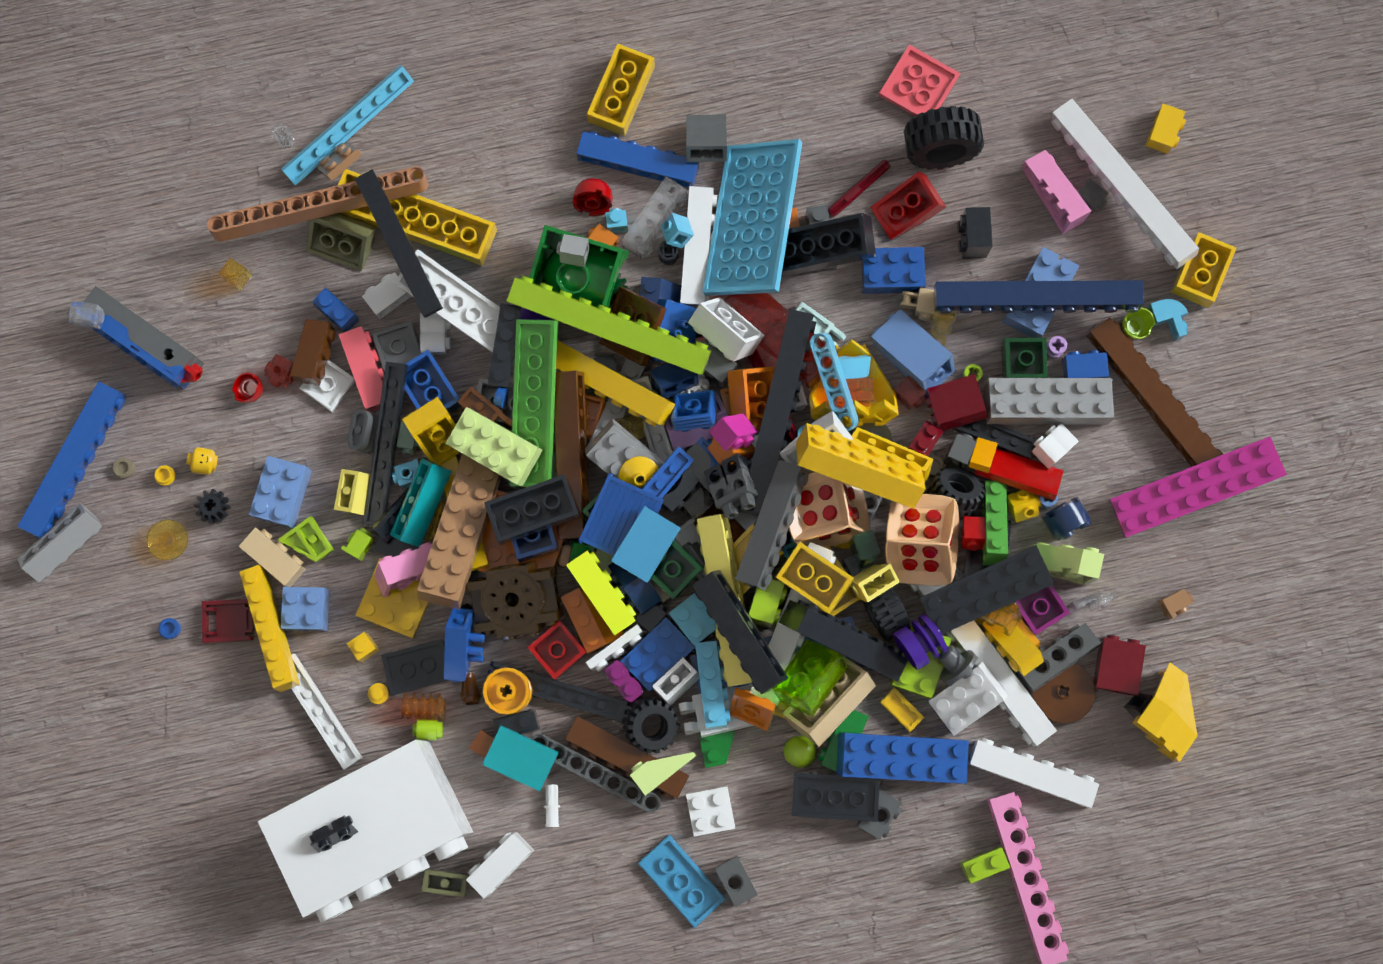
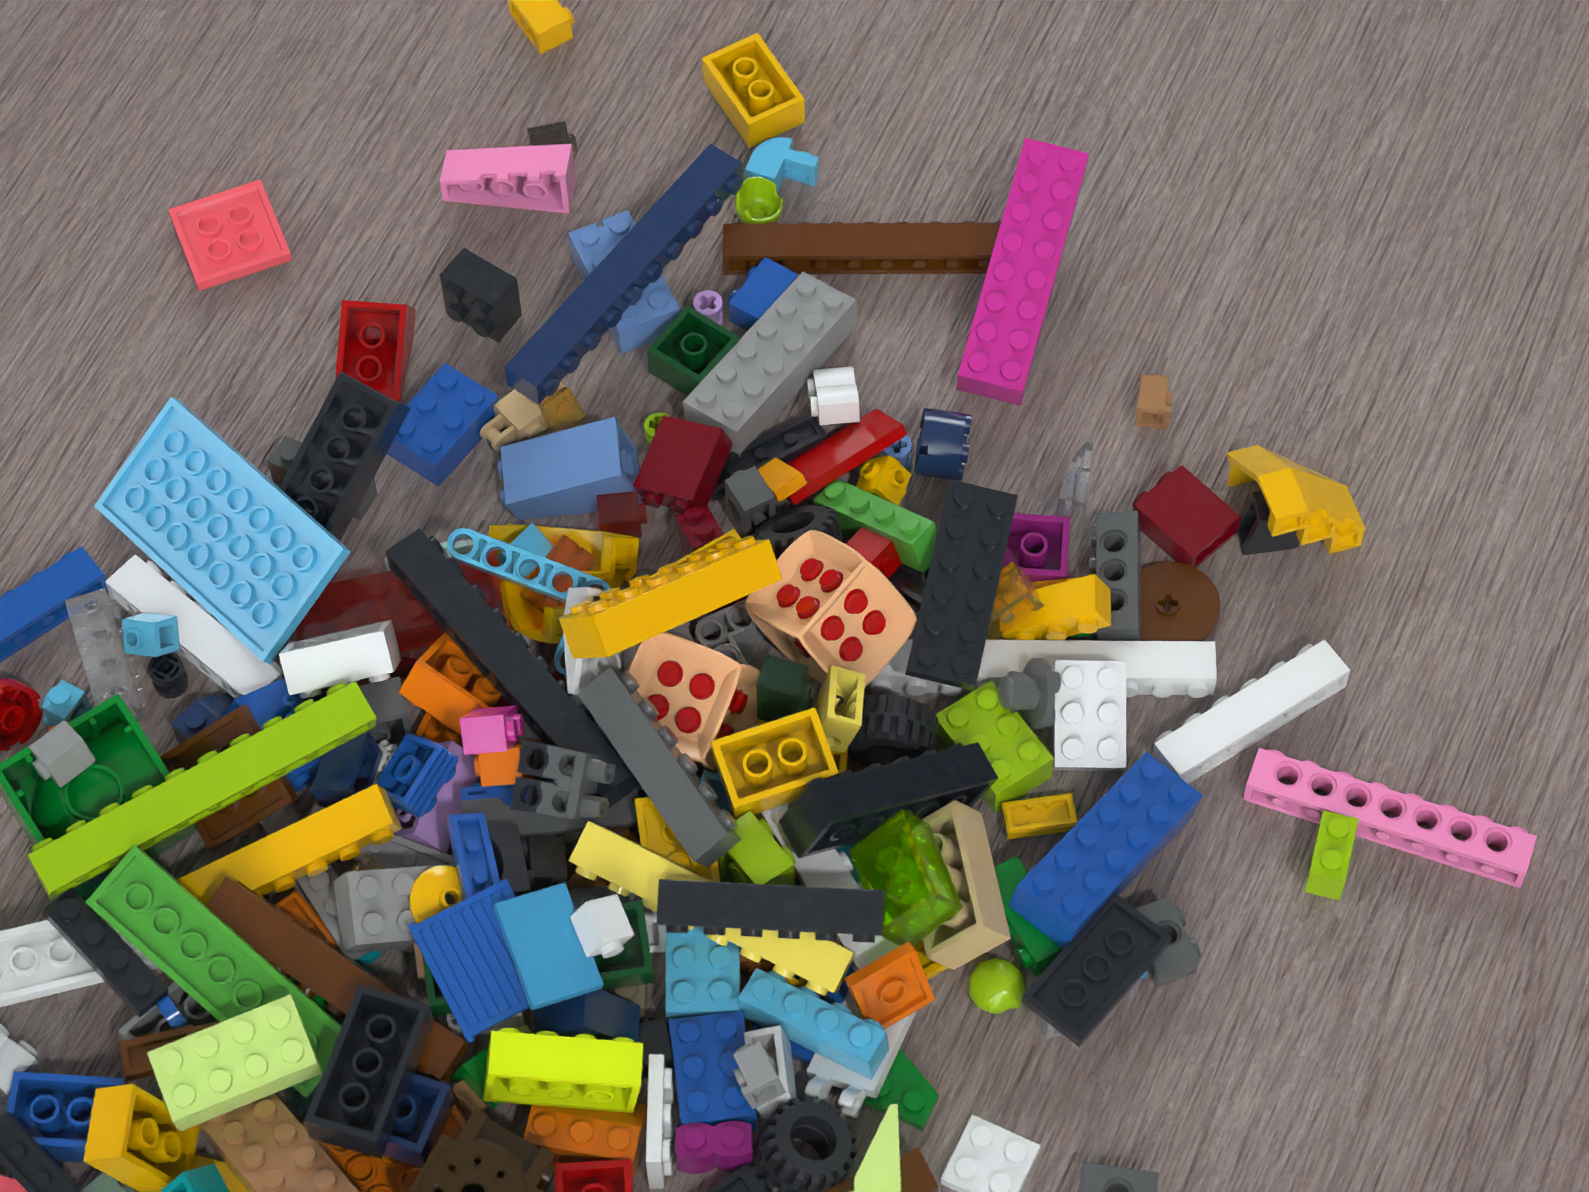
camera: 55 degrees left, 20 degrees down
(663, 681) = (757, 1075): none -> light grey brick
(671, 563) = (602, 926): none -> white brick
(706, 138) = (61, 516): dark grey brick -> none
(858, 188) = (297, 388): dark red axle -> none
(921, 641) = (967, 704): dark purple wheel -> none
(943, 137) = (326, 239): black tyre -> none
(1072, 563) = (1015, 460): yellowish green brick -> none
(1124, 184) = (568, 95): white brick -> none

